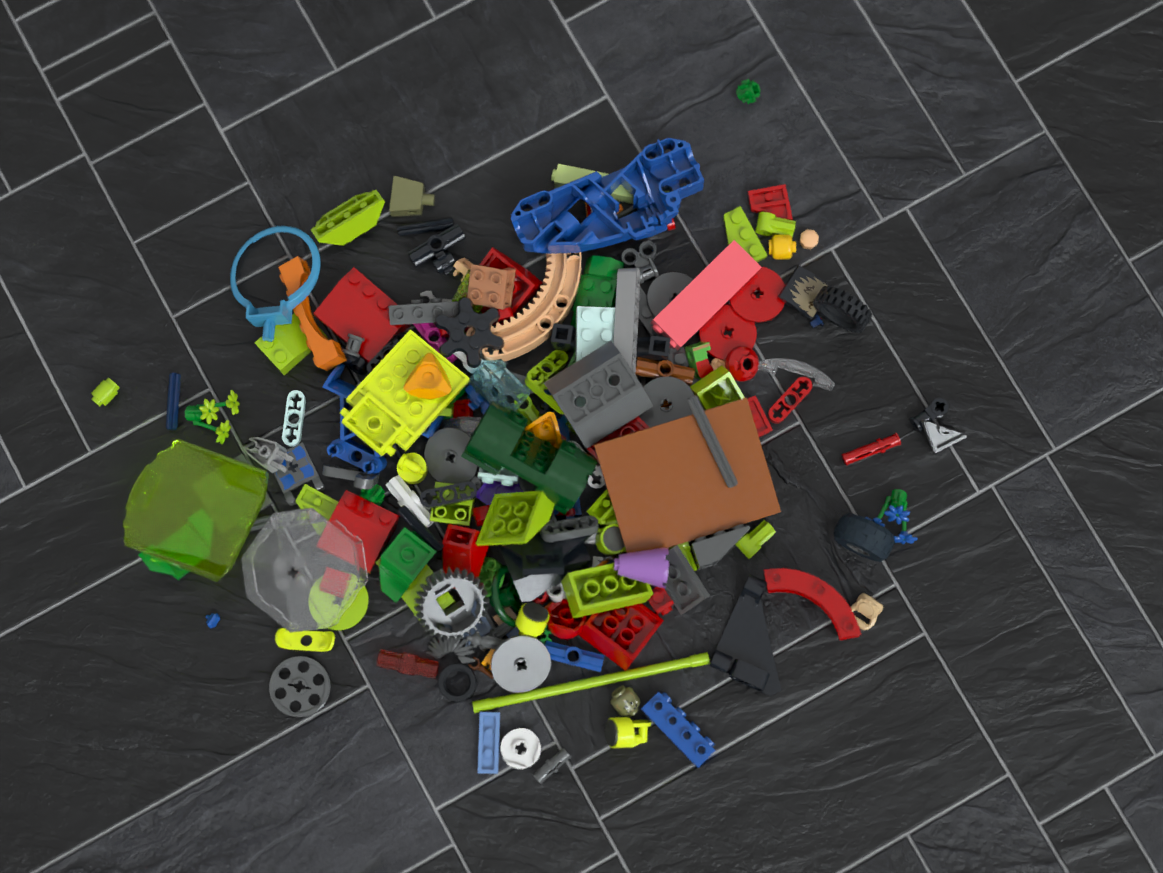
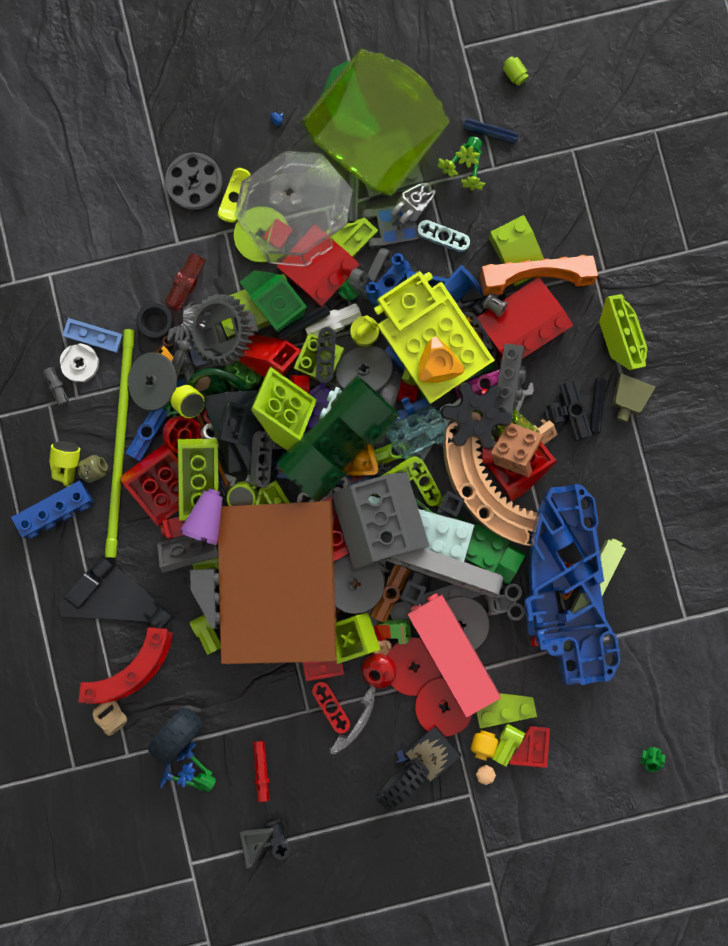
camera: 105 degrees right, 5 degrees up
(276, 315) = (545, 247): dark azure brick -> none
(712, 441) = (302, 615): dark grey axle -> none

